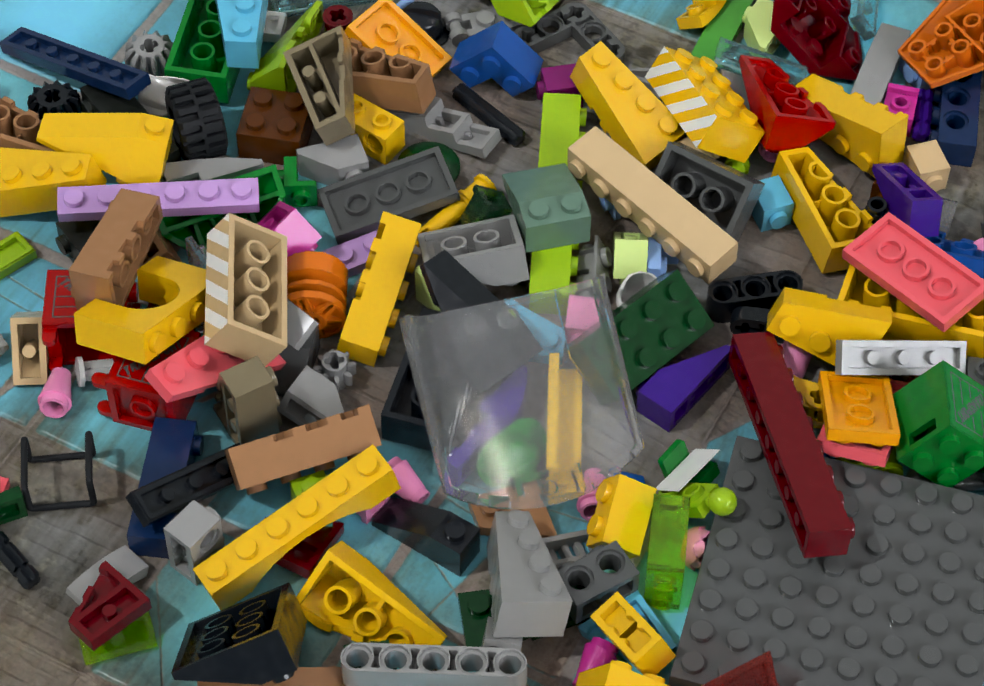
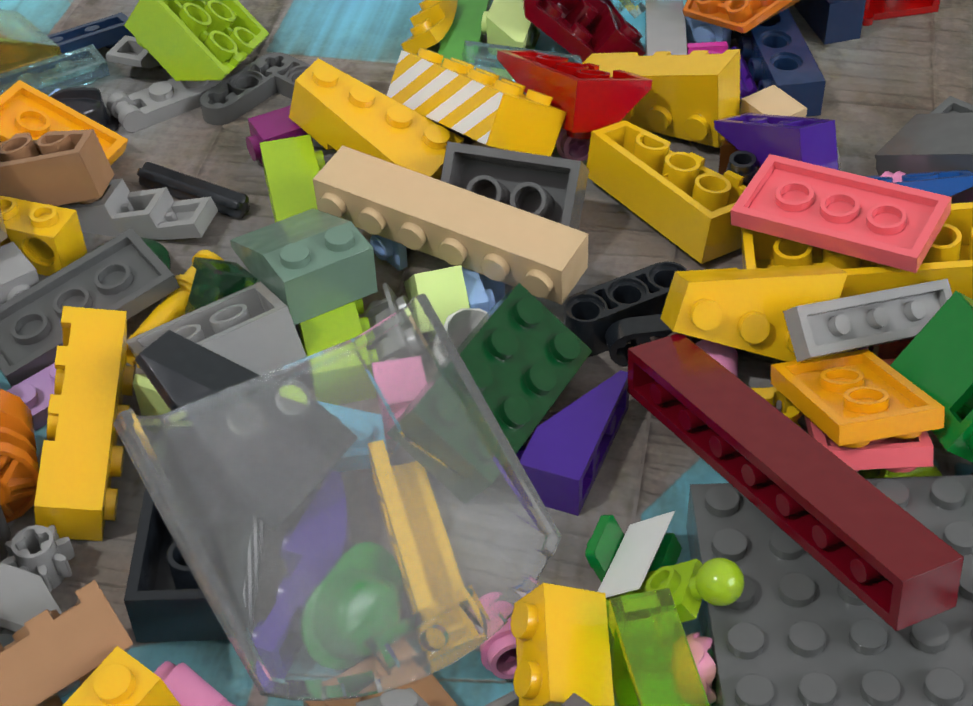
camera: 15 degrees left, 10 degrees down
(497, 55) = (190, 116): blue brick -> none
(773, 206) = (606, 202): medium azure brick -> none

